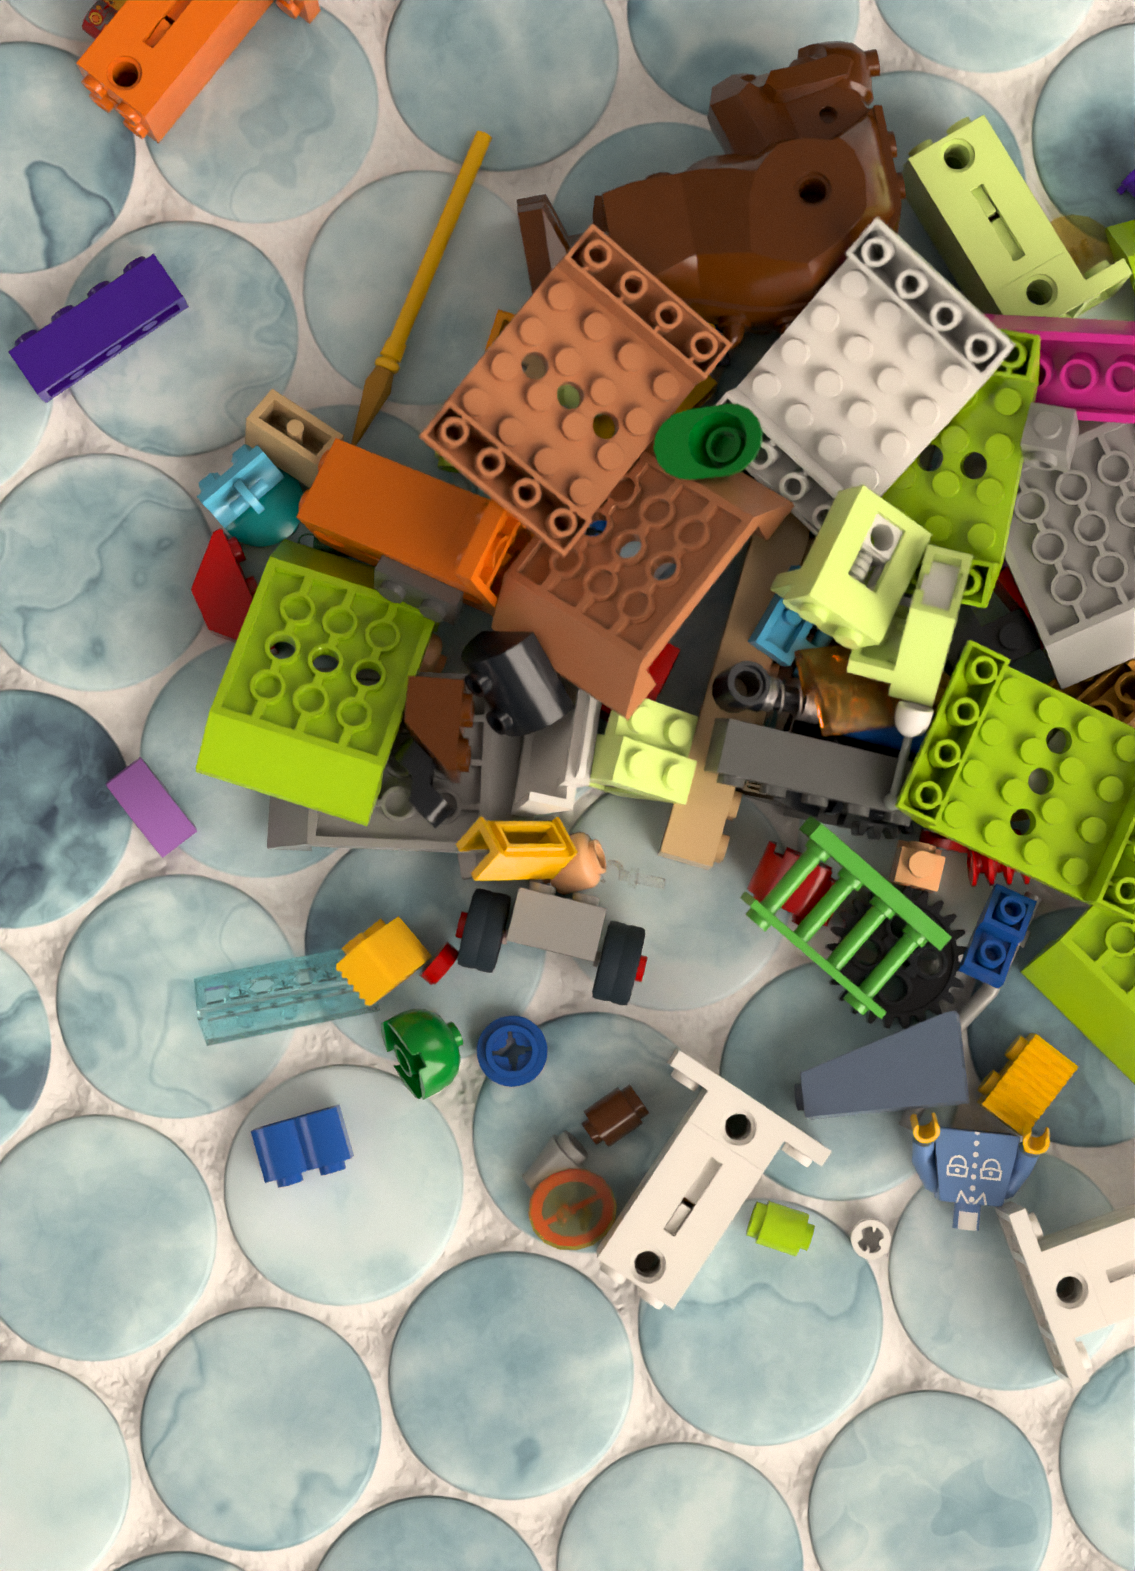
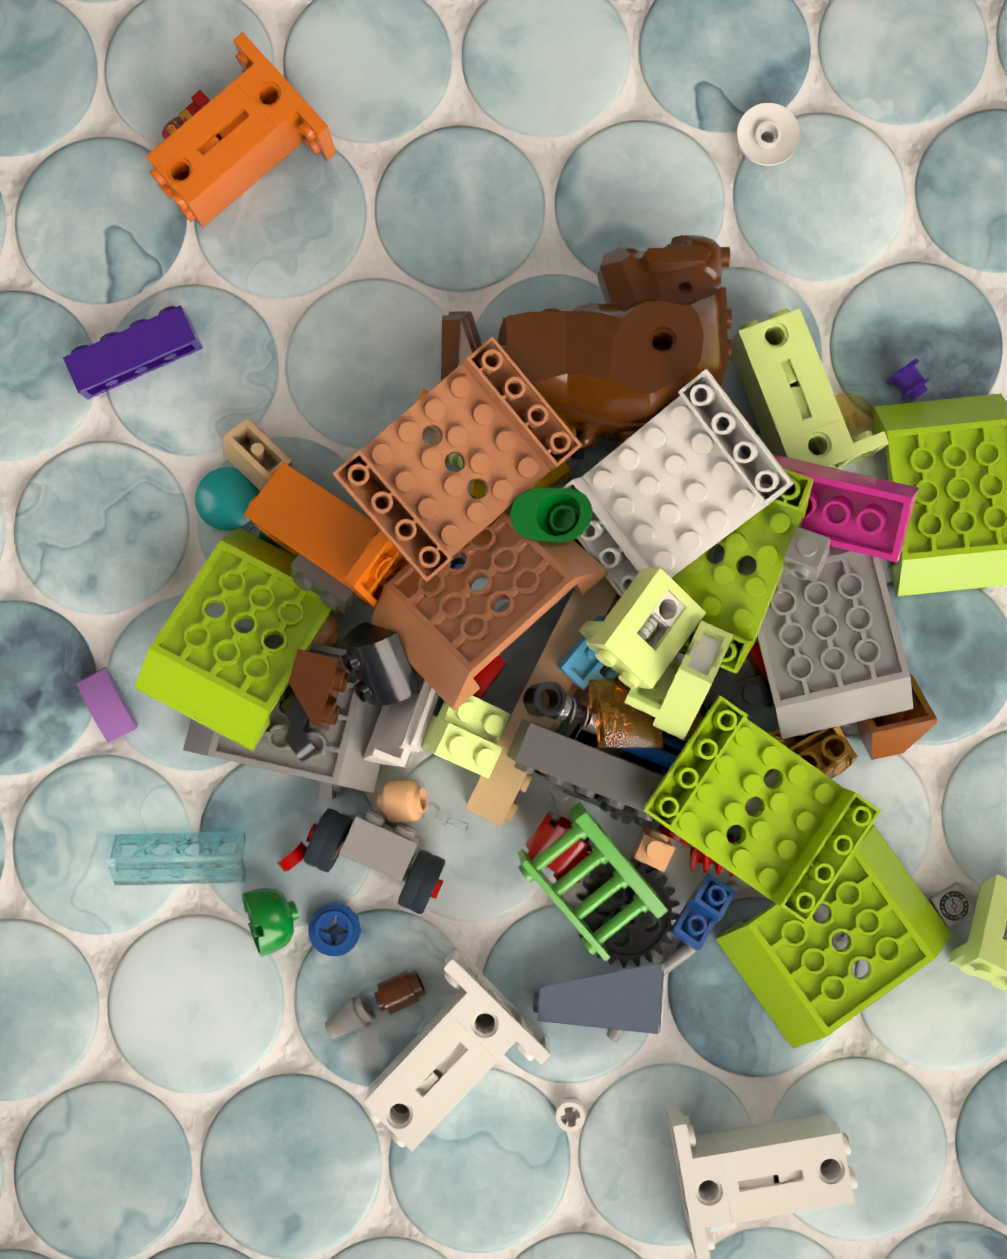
camera: 15 degrees right, 0 degrees up
(223, 589) = (187, 553): red slope -> none
(240, 485) = (211, 484): medium azure hips -> none
(301, 1145) = (169, 971): blue brick -> none
(379, 382) = (328, 426): yellow piece -> none
(381, 959) = (250, 849): yellow brick -> none
(519, 849) = (386, 793): yellow window -> none
(572, 1209) = (356, 1054): clear yellow piece -> none
(780, 1228) = (505, 1096): lime brick -> none
(911, 721) = (666, 748): white hinge -> none
(973, 1165) = (655, 1077): medium blue torso -> none
(1026, 1082) = (704, 1022): yellow brick -> none

